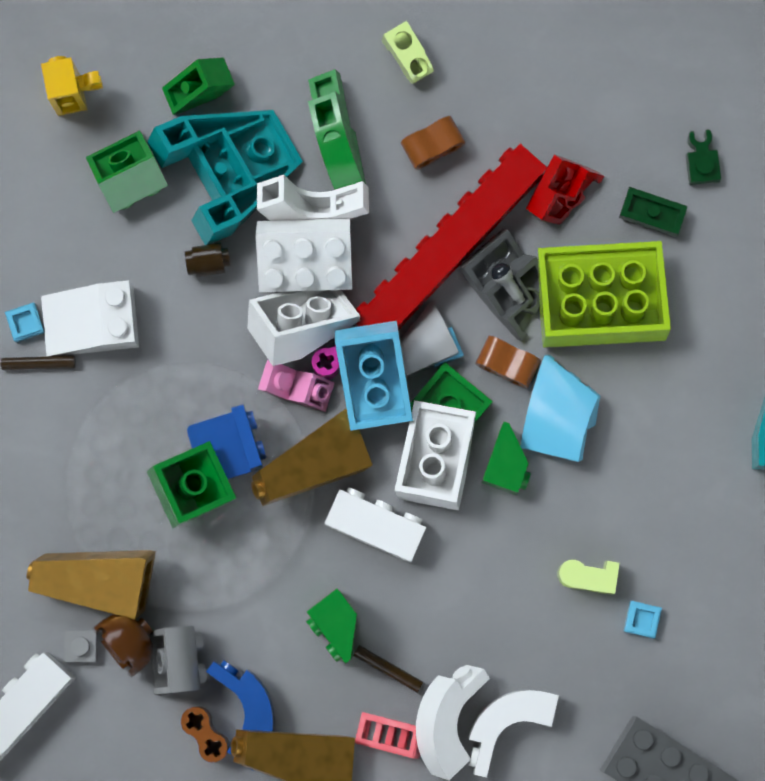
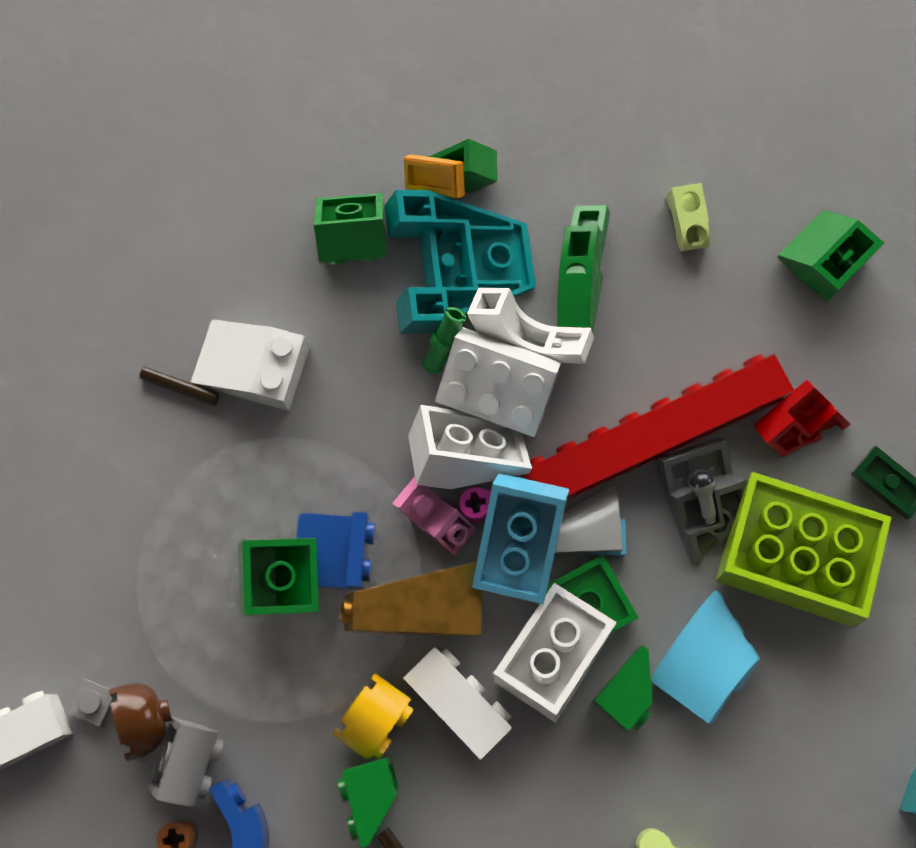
camera: 25 degrees right, 5 degrees down
(24, 322) = (183, 339): medium azure tile -> none
(66, 86) = (325, 119): yellow brick -> none
(98, 580) = (136, 639): pearl gold slope -> none
(180, 100) = (435, 175): none -> light orange tile
(207, 260) = (395, 348): dark brown brick -> none
(245, 238) = (442, 340): none -> green pin
(313, 563) = (373, 717): none -> yellow brick
(433, 142) = (680, 318): dark orange axle -> none
(508, 362) = (672, 581): dark orange axle -> none
(534, 38) = (830, 252): none -> green slope

